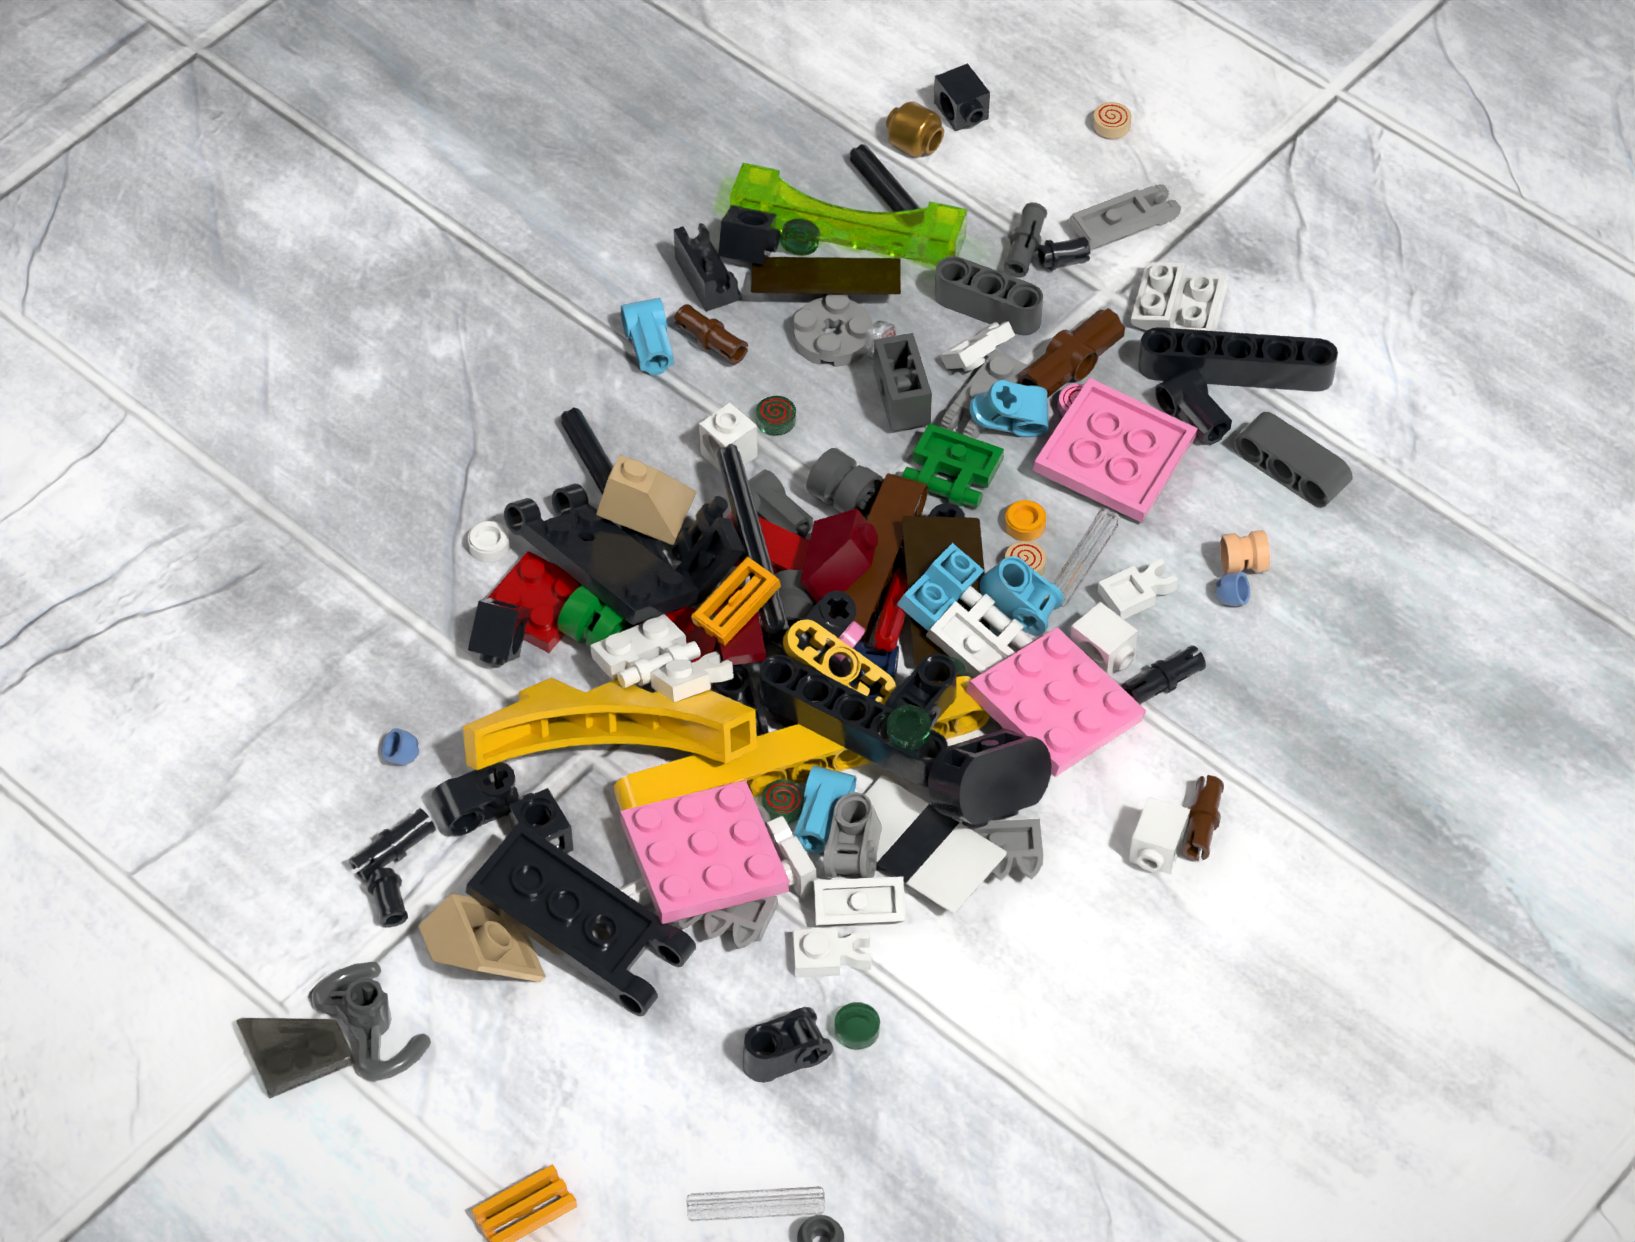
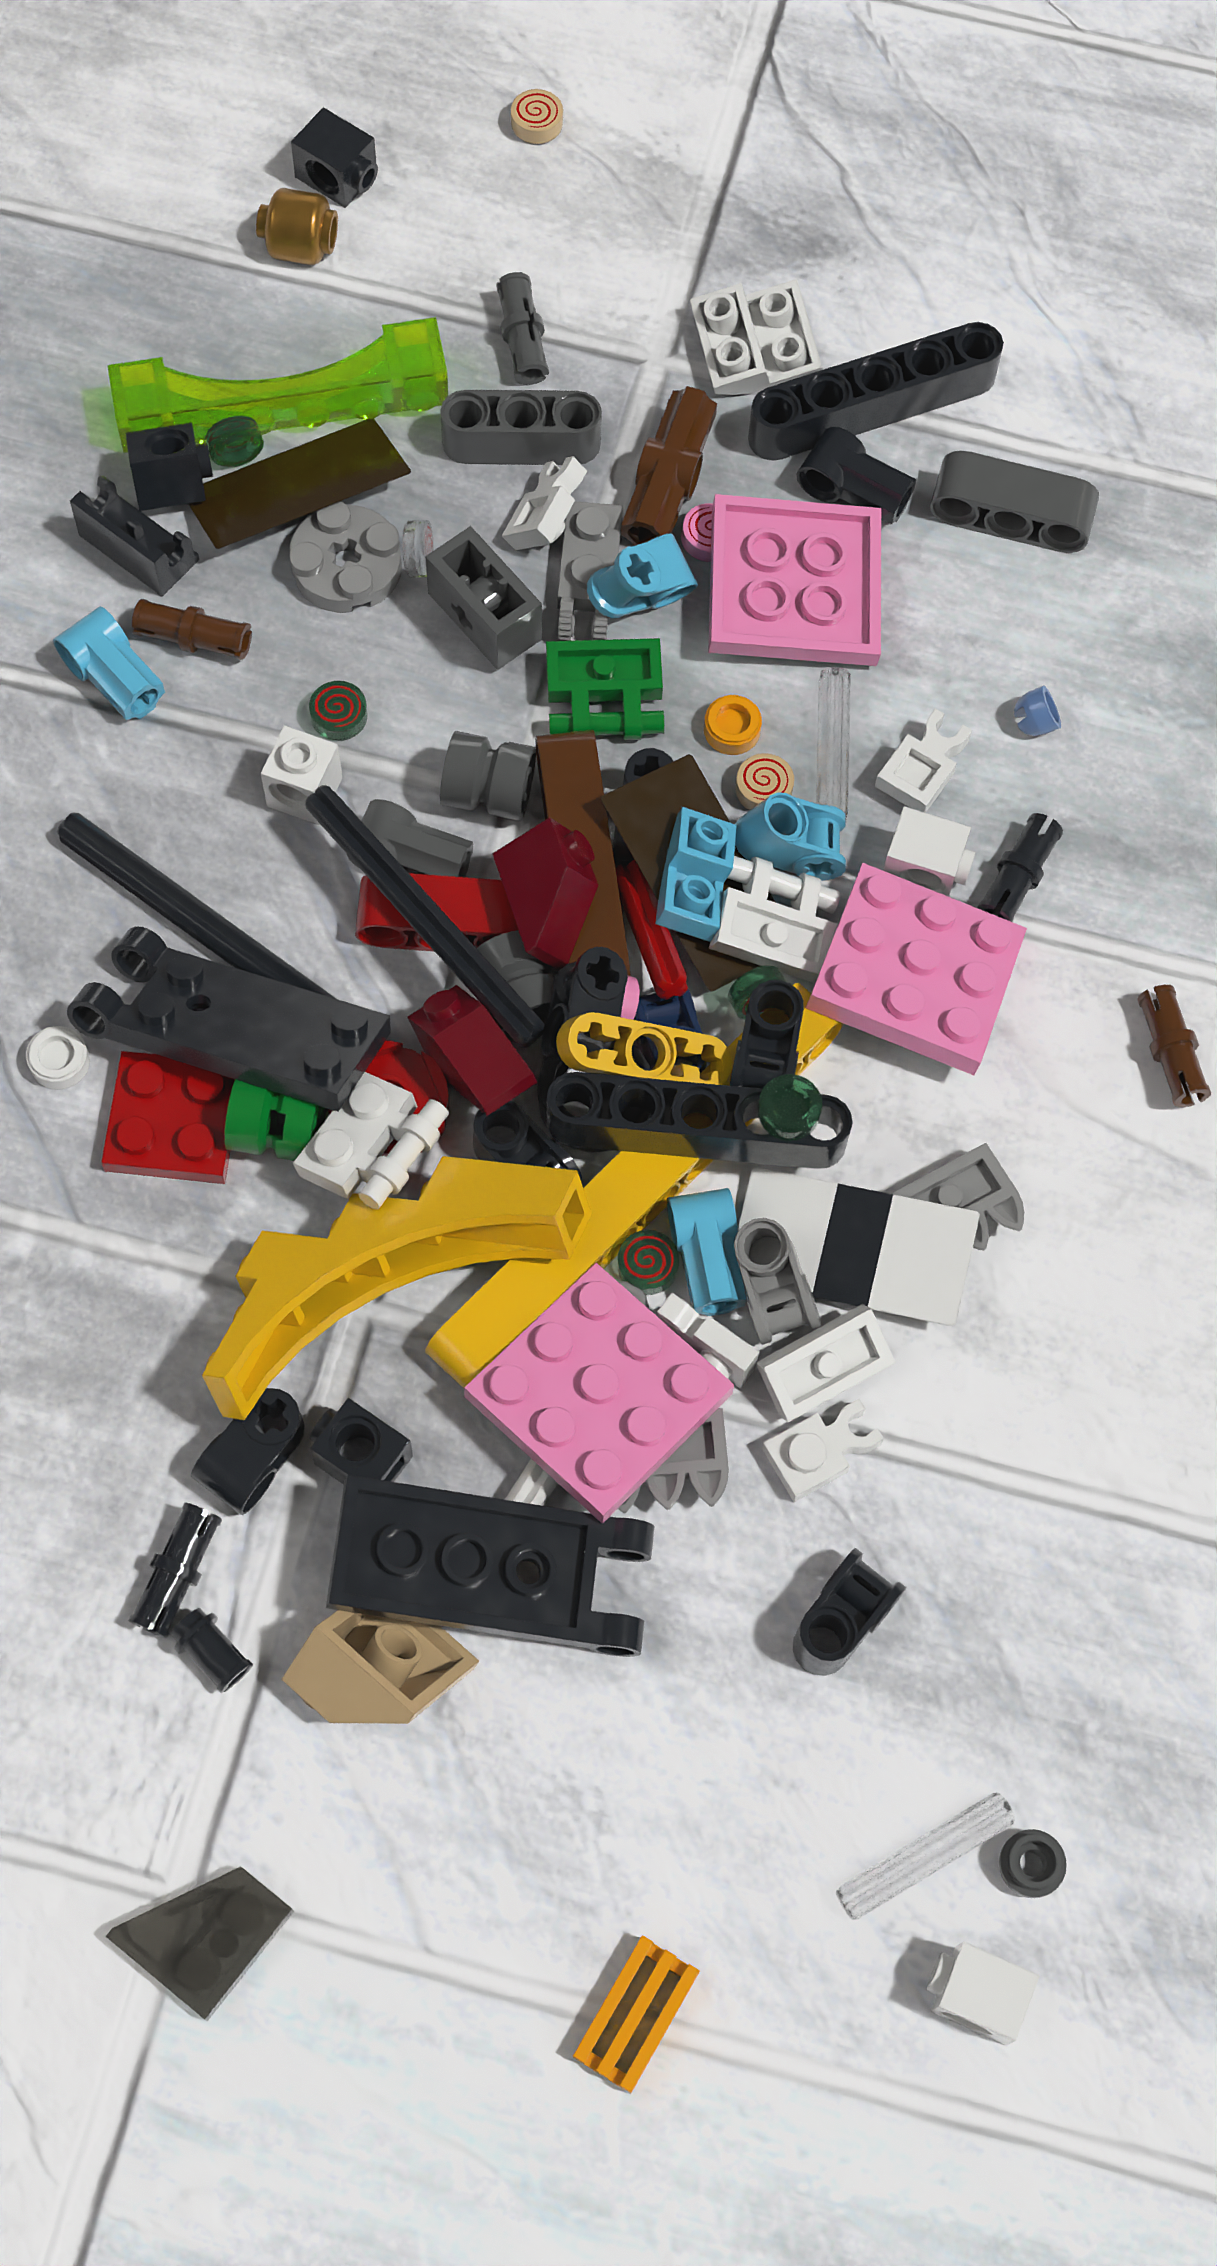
camera: 30 degrees left, 15 degrees up
(368, 1016) = (280, 1844): dark grey piece -> none
(400, 747) = (98, 1411): medium blue hinge -> none
(498, 630) = (151, 1190): black brick -> none
(645, 500) = (244, 914): tan slope -> none
(684, 679) = (456, 1160): white plate -> none
(708, 548) = (382, 955): black plate -> none
(744, 610) = (448, 1069): light orange tile -> none
(857, 1025) = (912, 1537): clear green tile -> none
(882, 179) = (297, 317): black axle -> none
(989, 777) = (908, 1120): black brick -> none
(1063, 252) = (571, 333): black pin -> none
(1124, 215) = (624, 248): light grey hinge -> none
(1159, 835) = (1139, 1097): white brick -> none
(1245, 552) = (1027, 657): light nougat wheel -> none

